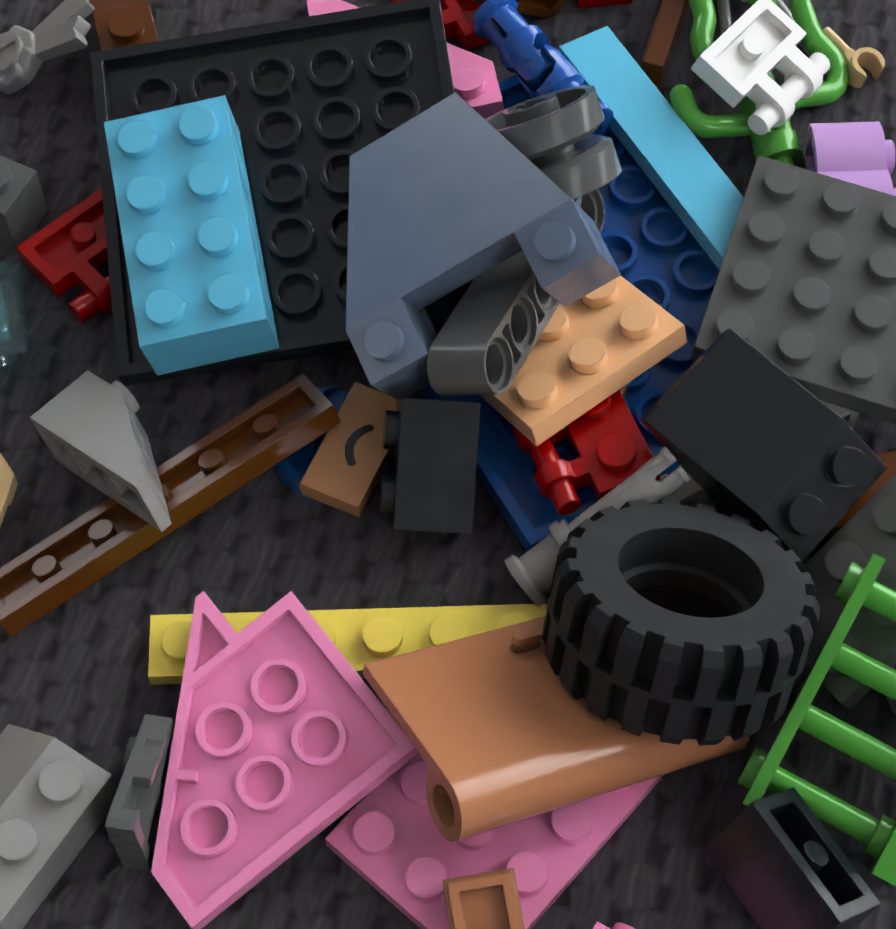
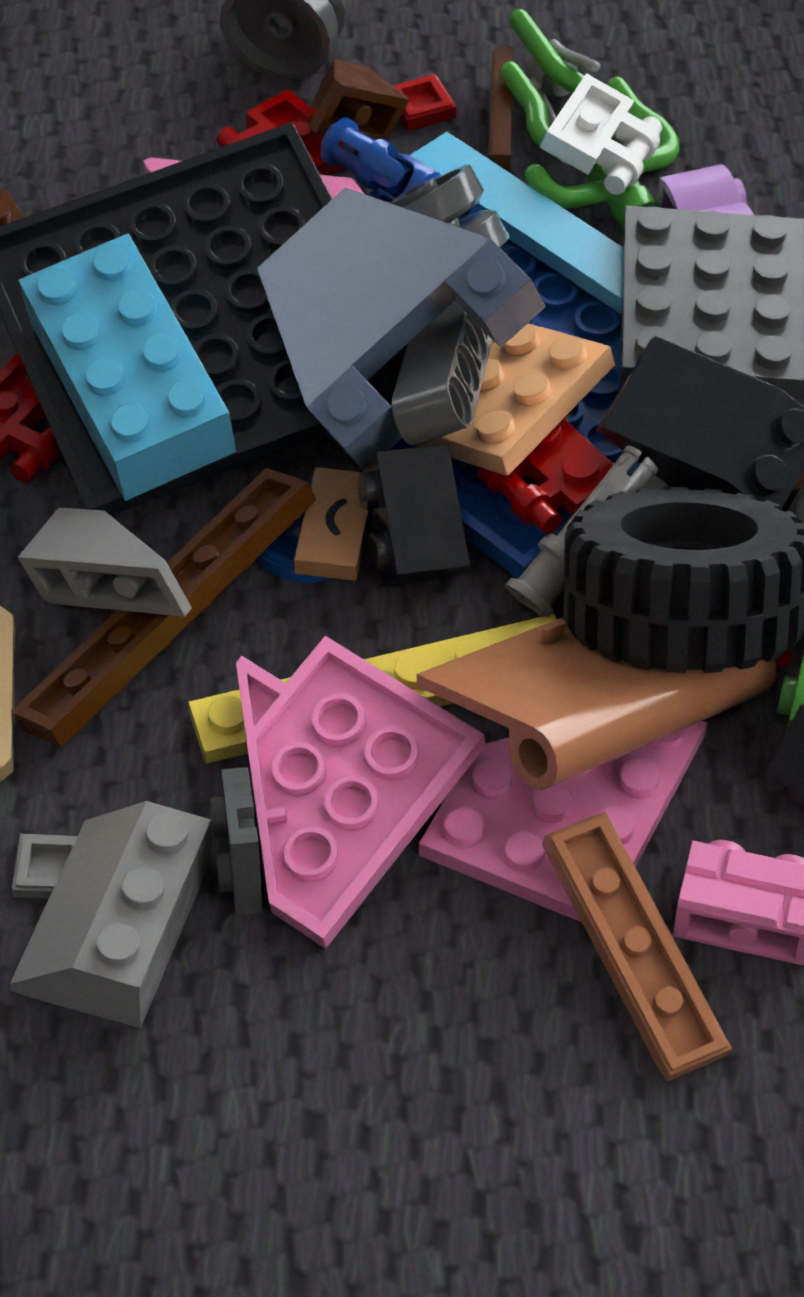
camera: 15 degrees left, 10 degrees down
(863, 57) = (686, 125): tan hand -> none

